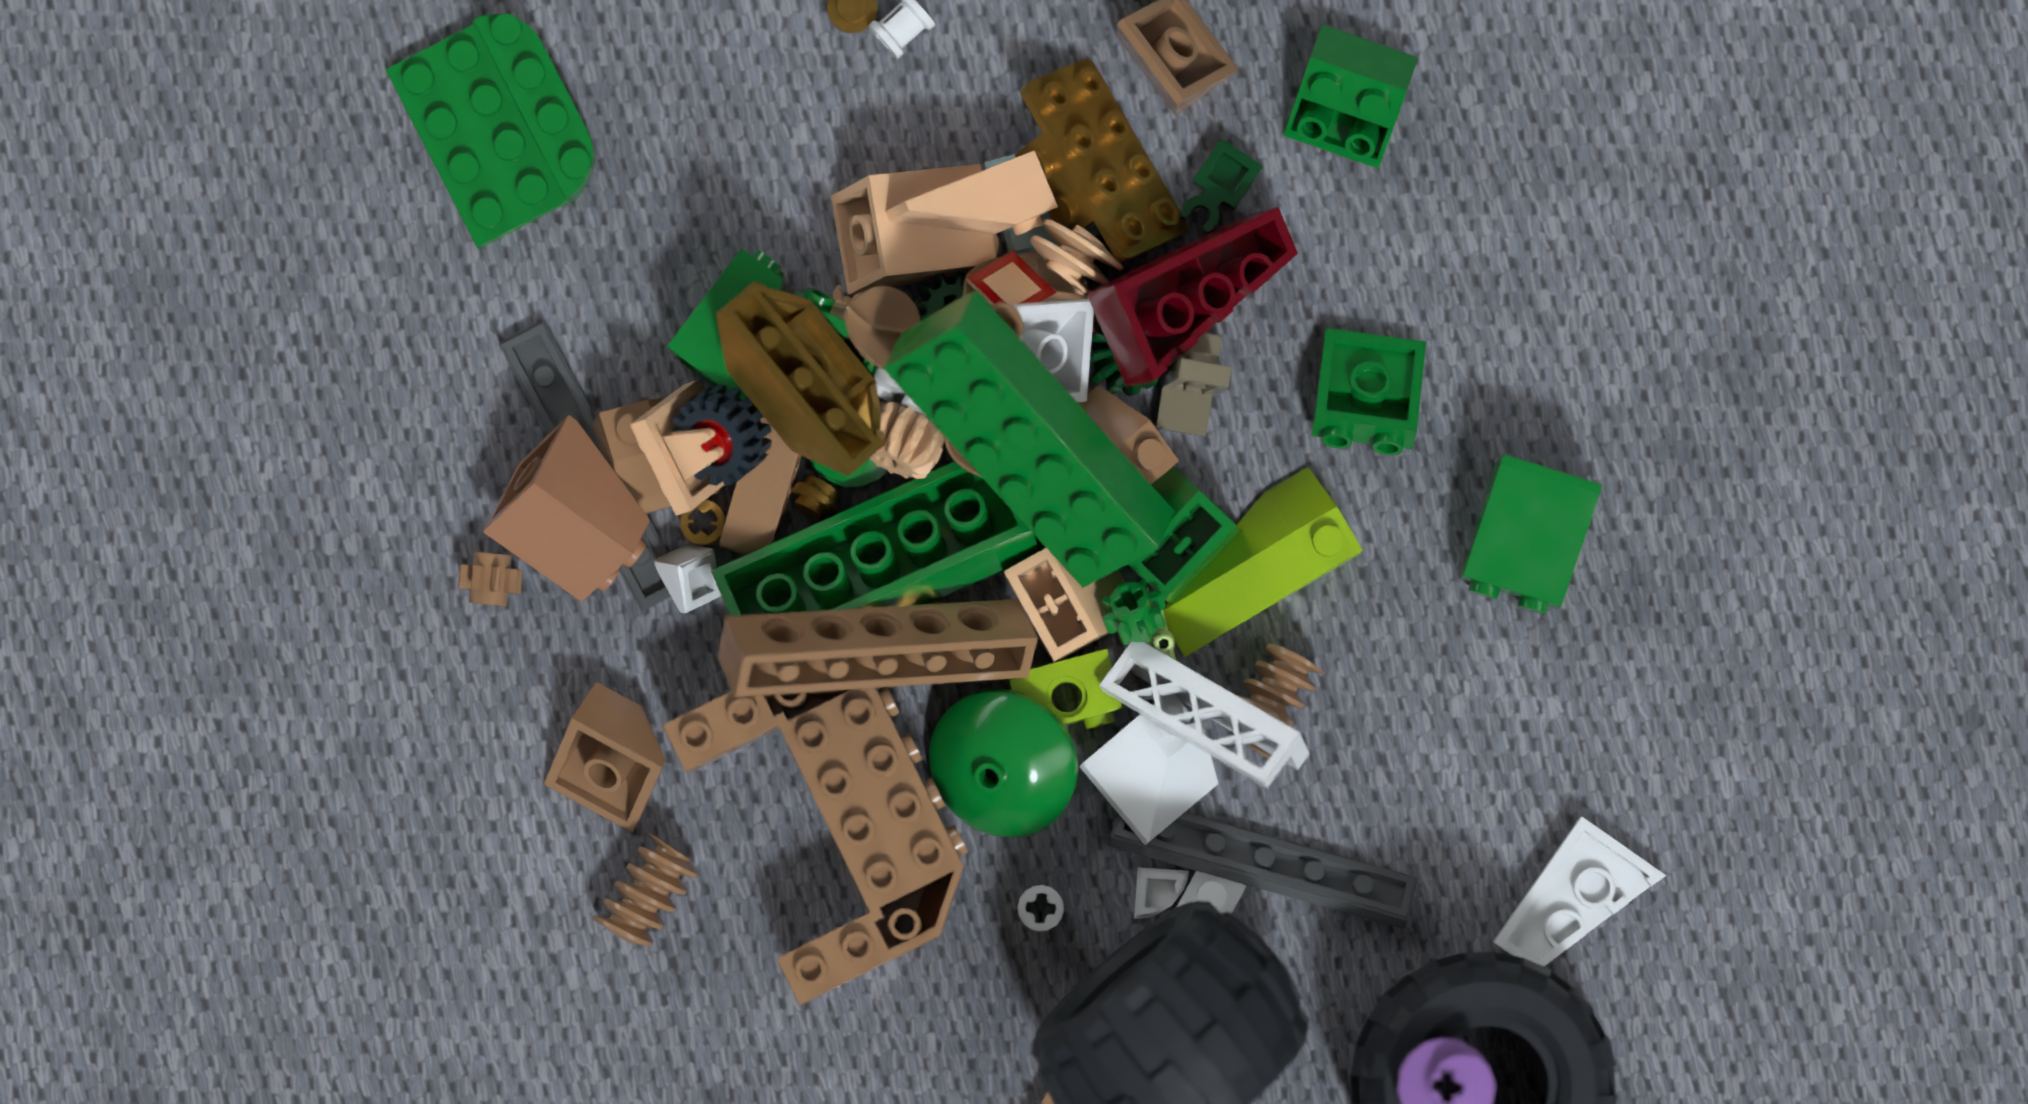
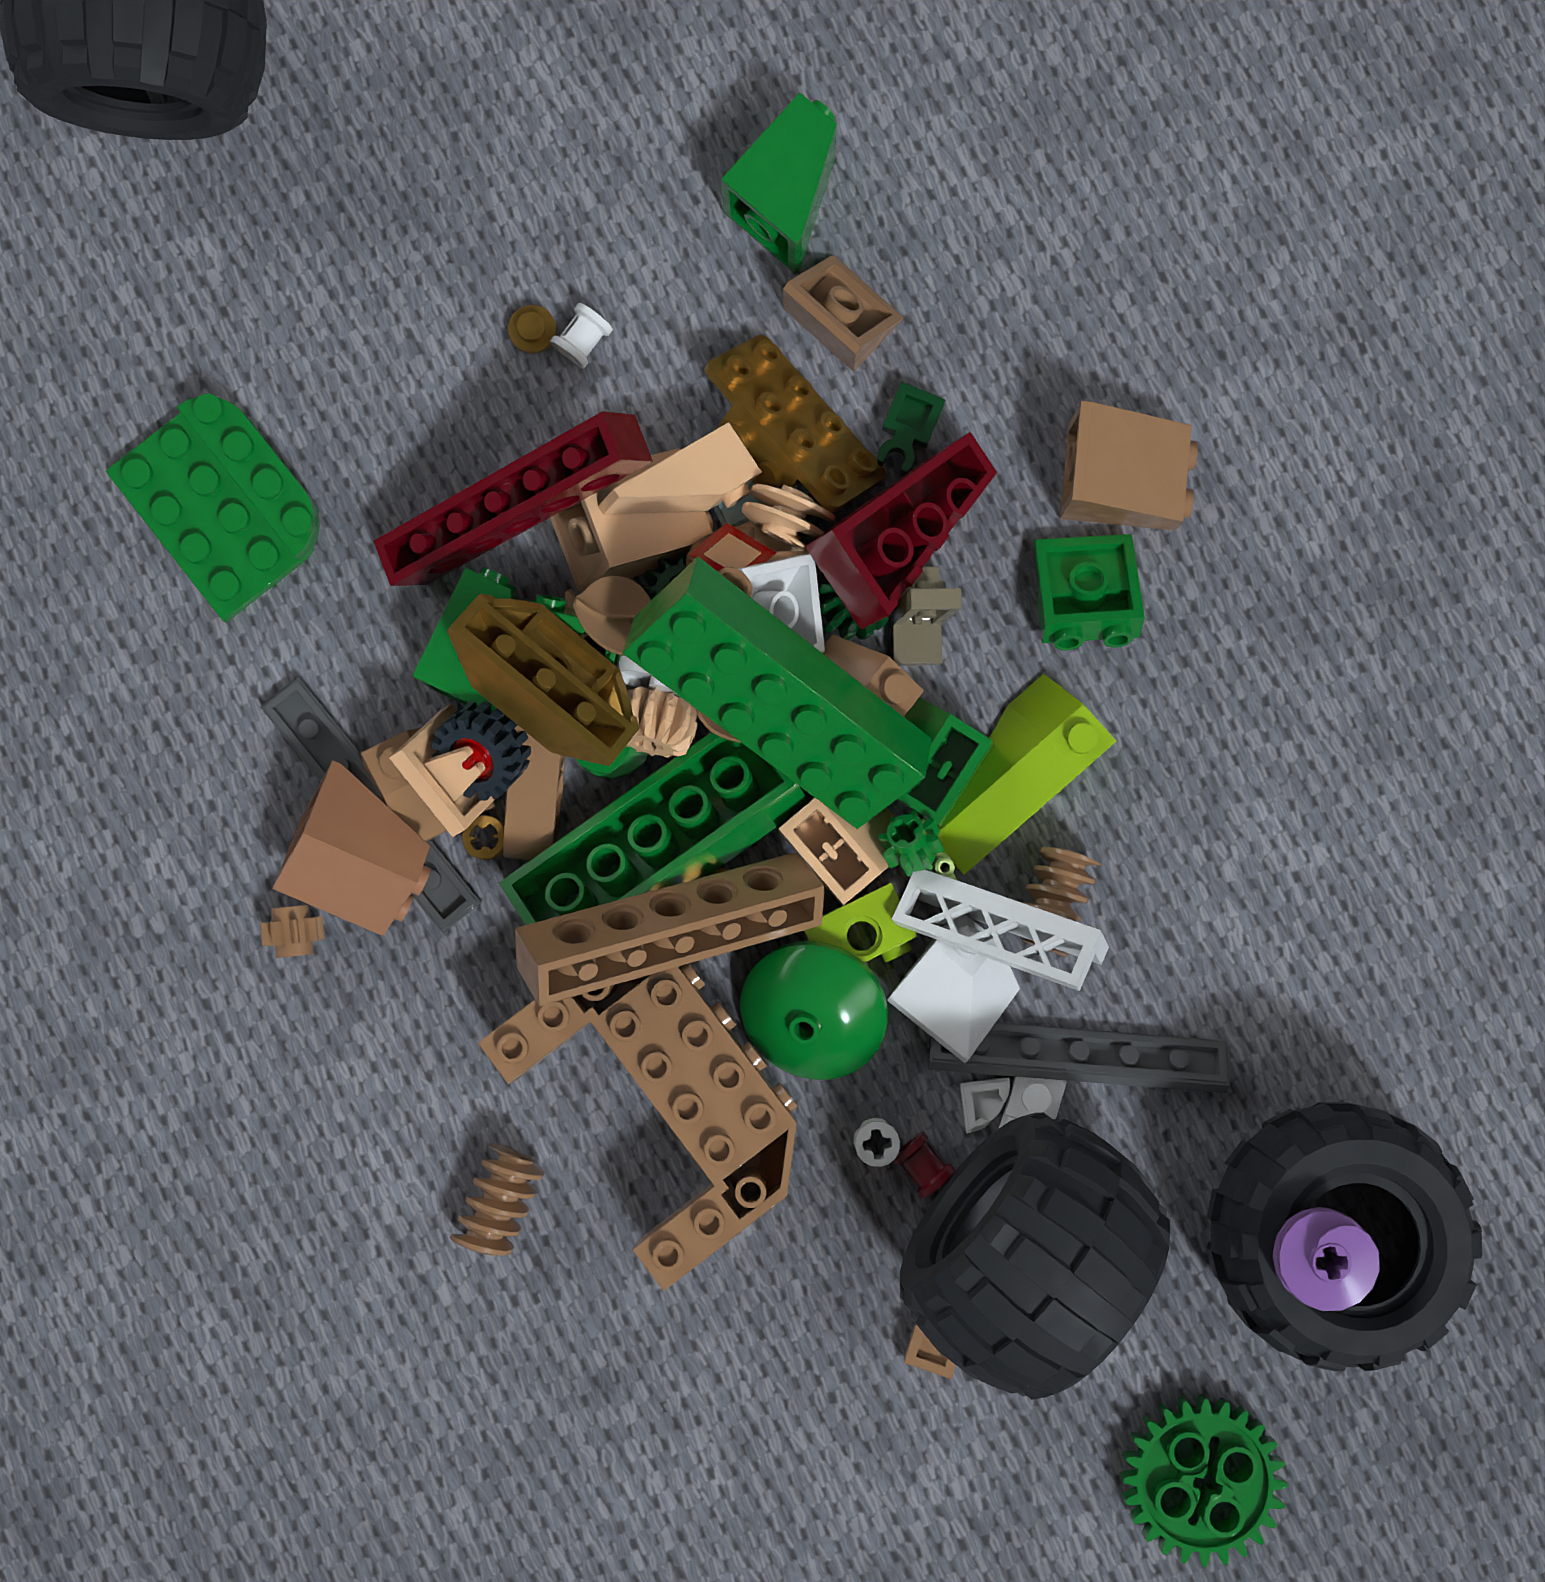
camera: 10 degrees left, 0 degrees up
(608, 758) = (436, 1078): medium nougat slope -> none
(689, 576) = (479, 892): white slope -> none
(800, 190) = (514, 499): none -> dark red brick
(815, 498) = (586, 794): pearl gold plate -> none
(1082, 940) = (923, 1165): none -> dark red bush
(1350, 96) = (1015, 320): green slope -> none
(1434, 275) = (1127, 468): none -> medium nougat slope
(1529, 534) = (1269, 693): green slope -> none
(1574, 894) = (1377, 1027): white wing -> none

